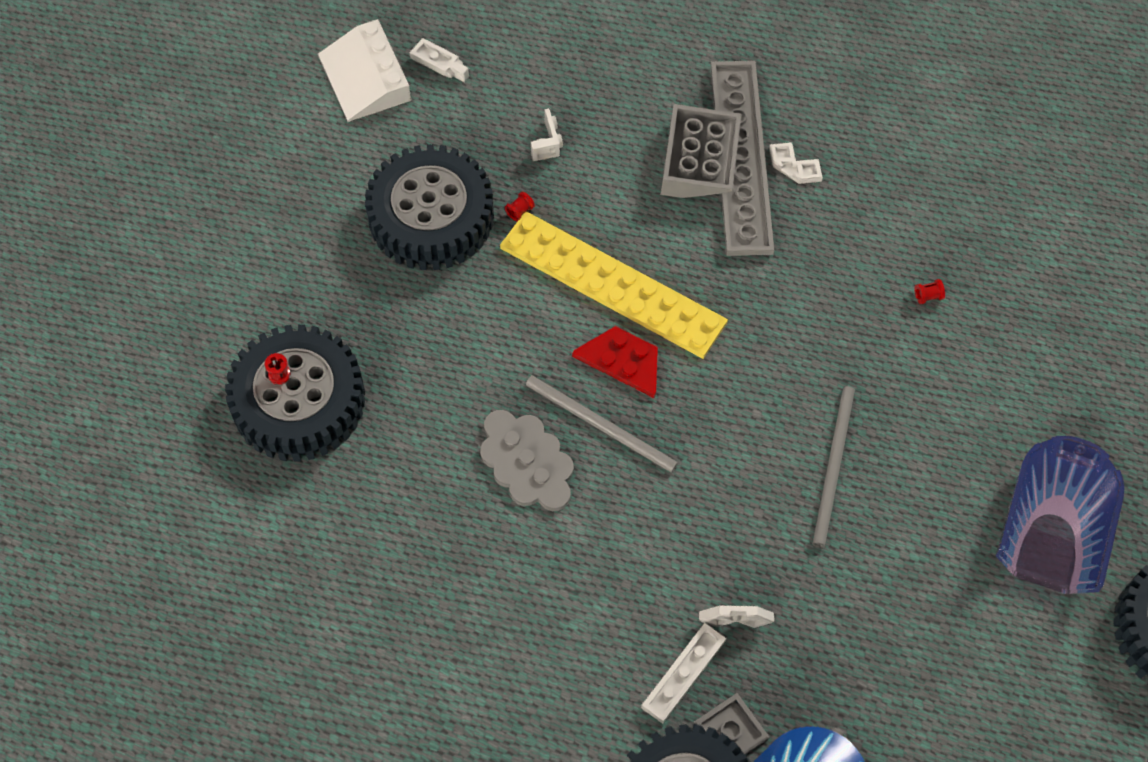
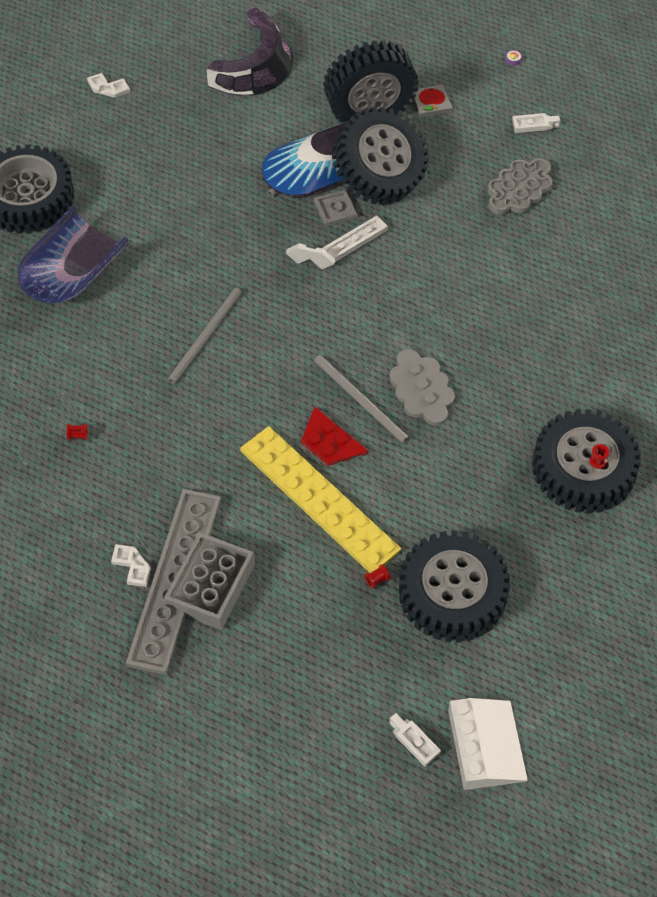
camera: 165 degrees left, 5 degrees down
(548, 147) = (342, 624): white bracket -> none

